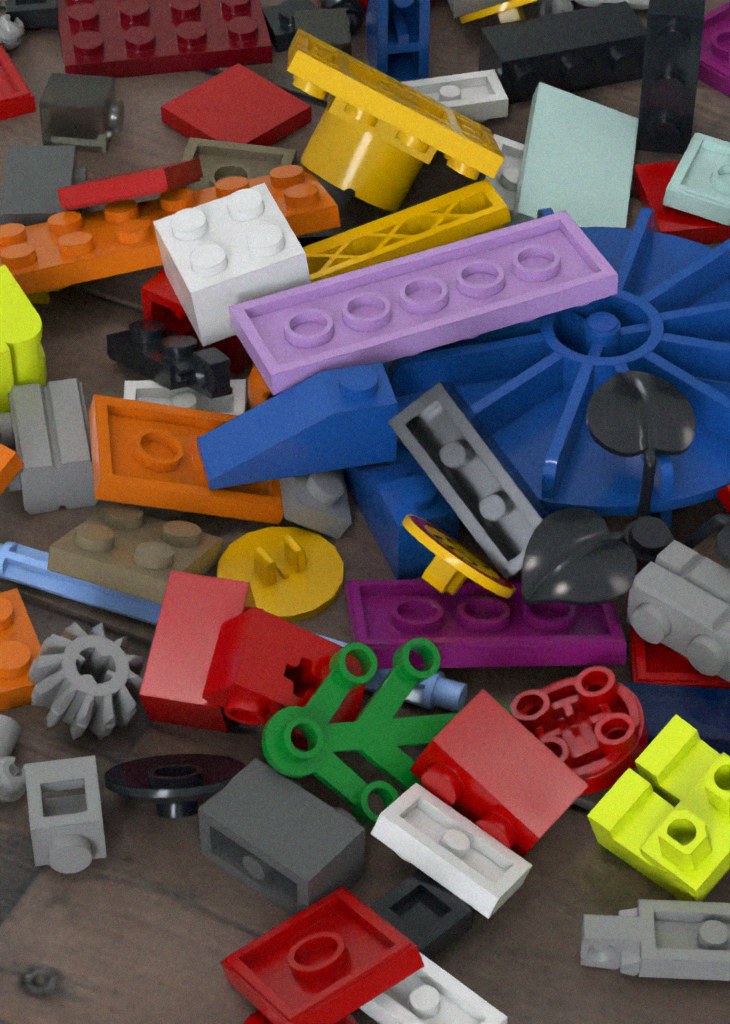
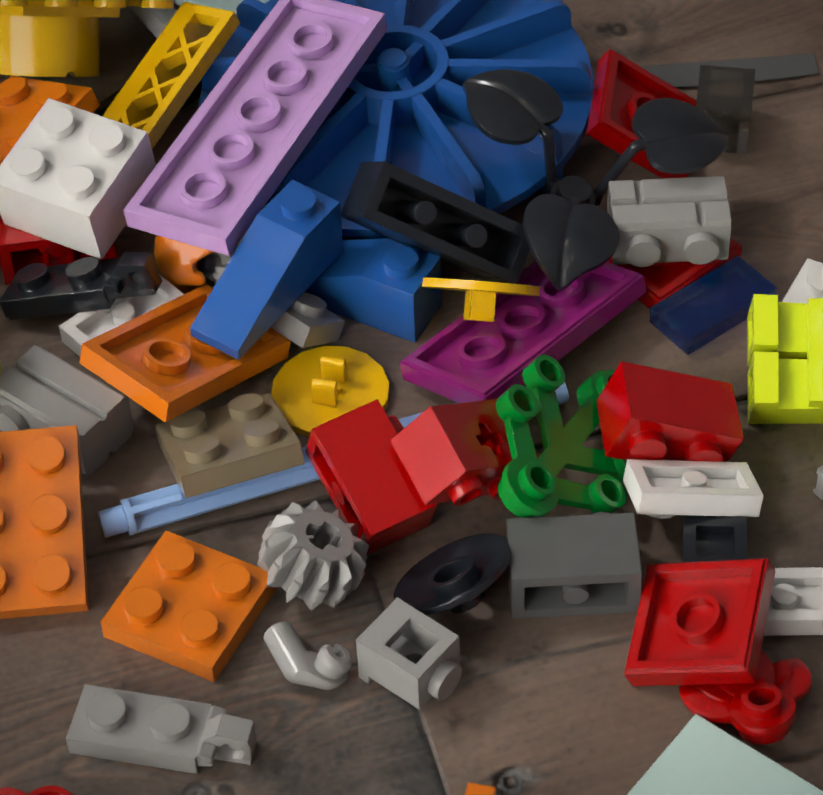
camera: 40 degrees left, 5 degrees up
(587, 724) = (672, 340): red tile -> none

